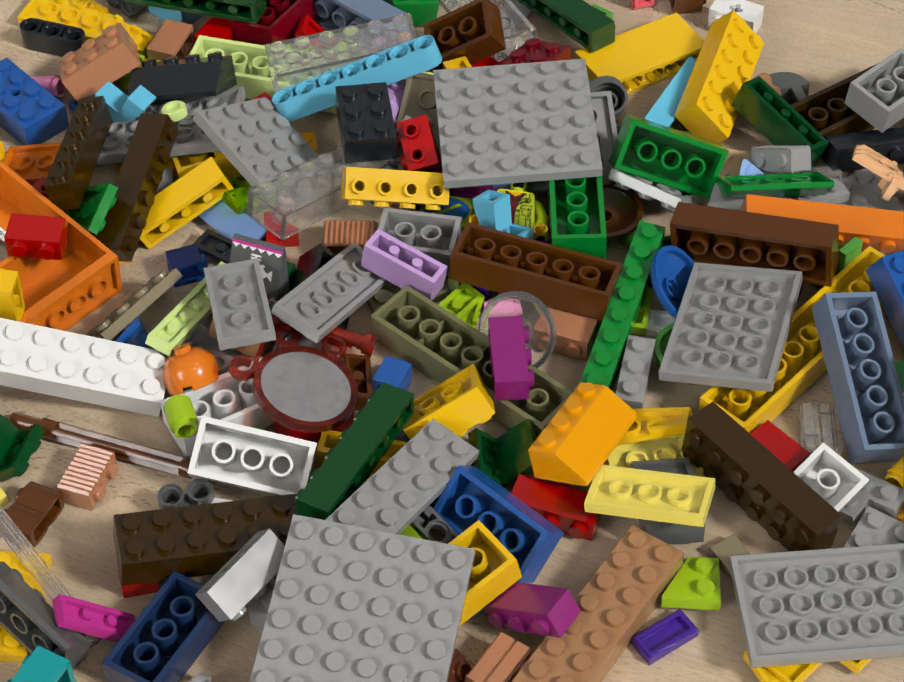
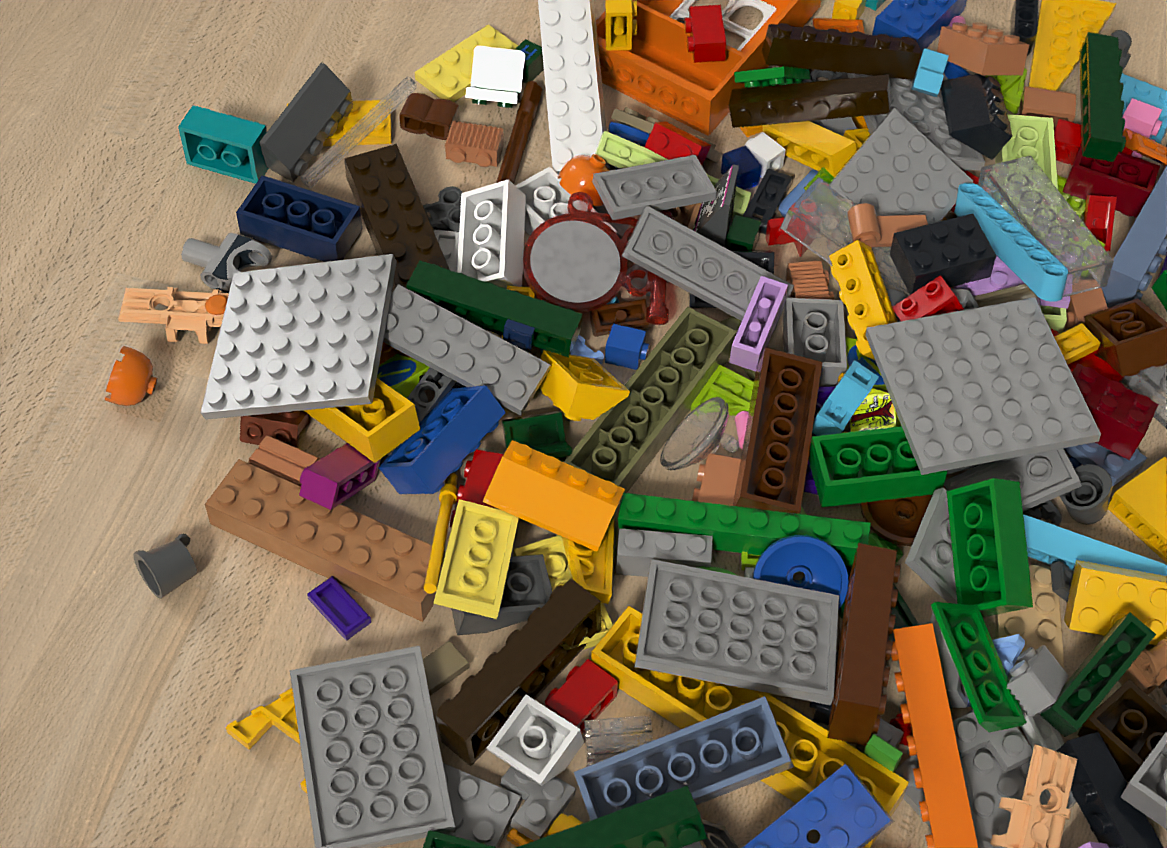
camera: 80 degrees right, 5 degrees up
(91, 618) = (307, 160): dark pink plate -> none
(167, 240) = (767, 152): none -> white brick
(172, 288) = (675, 143): none -> red brick
(175, 109) = (928, 114): yellowish green tile -> none
(181, 416) = (525, 175): lime brick -> none
(243, 577) = (338, 241): brick -> none
(323, 155) = (879, 230): none -> nougat door
(394, 438) = (519, 335): none -> dark blue tile
(510, 358) = (641, 418): magenta brick -> none
(627, 528) = (447, 497): none -> yellow bar
(695, 586) = (399, 628): lime wing -> none

